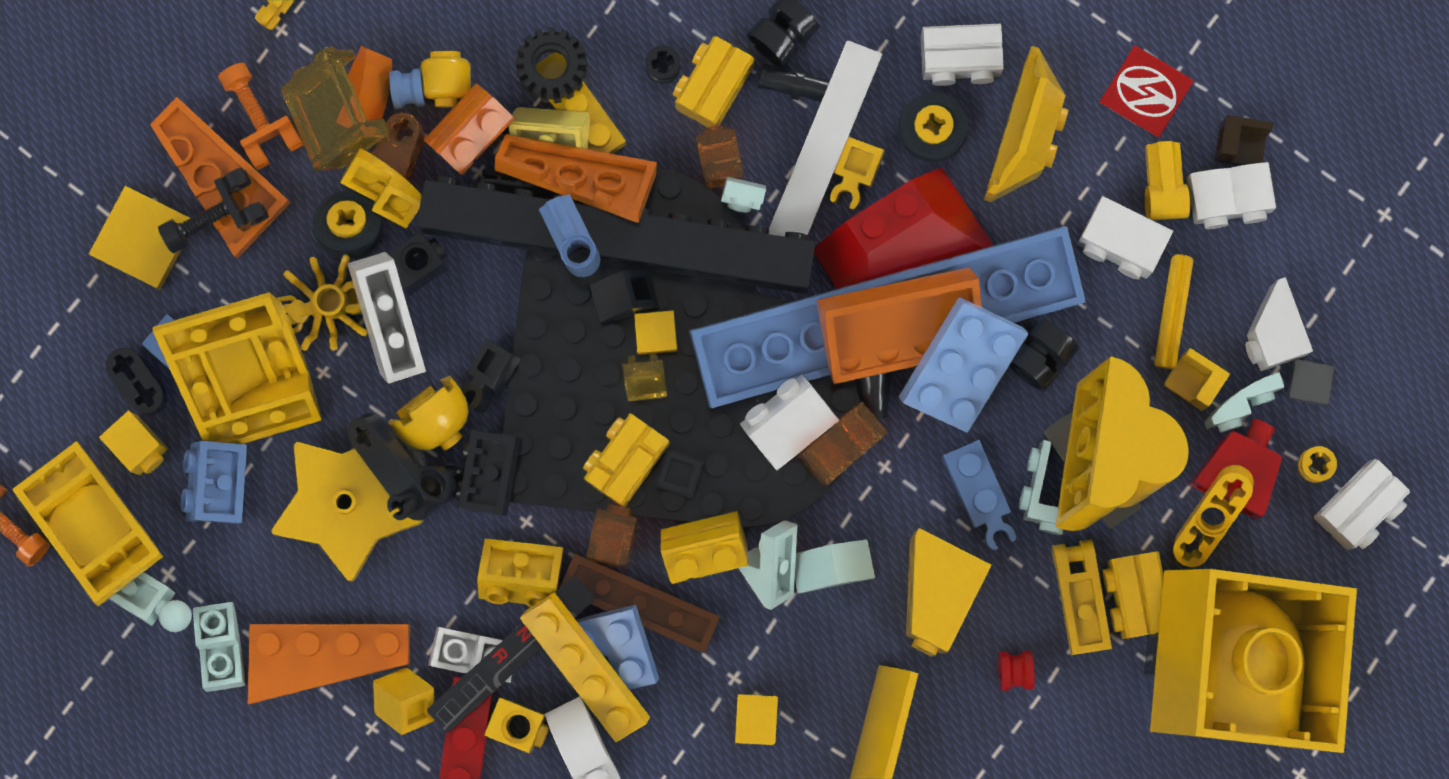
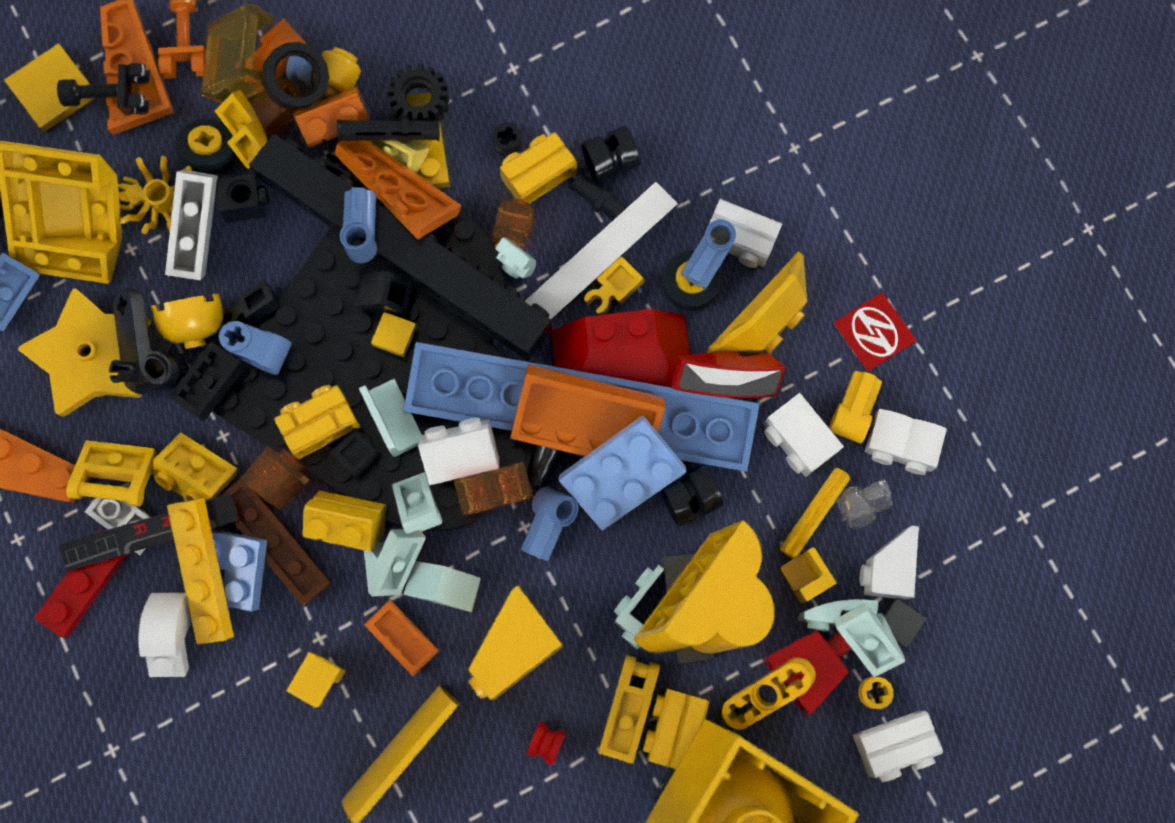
camera: 20 degrees right, 5 degrees down
(403, 700) = (48, 528): yellow panel -> none
(435, 602) = (112, 463): none -> yellow plate
(441, 97) = (310, 55): none -> black tyre
(499, 726) = (112, 585): yellow brick -> none
(530, 413) = (260, 348): none -> medium blue piece
(556, 111) = (388, 130): none -> black pin
(644, 379) = (364, 365): clear yellow tile -> none
(692, 415) = (394, 424): none -> light aqua panel
(771, 495) = (416, 504): none -> light aqua slope
(819, 636) = (401, 638): none -> orange plate
(910, 438) = (552, 513): none -> medium blue piece
(942, 97) = (709, 256): none -> medium blue piece
(979, 491) = (589, 581): medium blue plate -> none
(1022, 211) = (728, 374): none -> slope
(1215, 282) = (859, 504): none -> clear plate
(1242, 140) = (934, 402): dark brown panel -> none
(1289, 414) = (870, 639): none -> light aqua slope

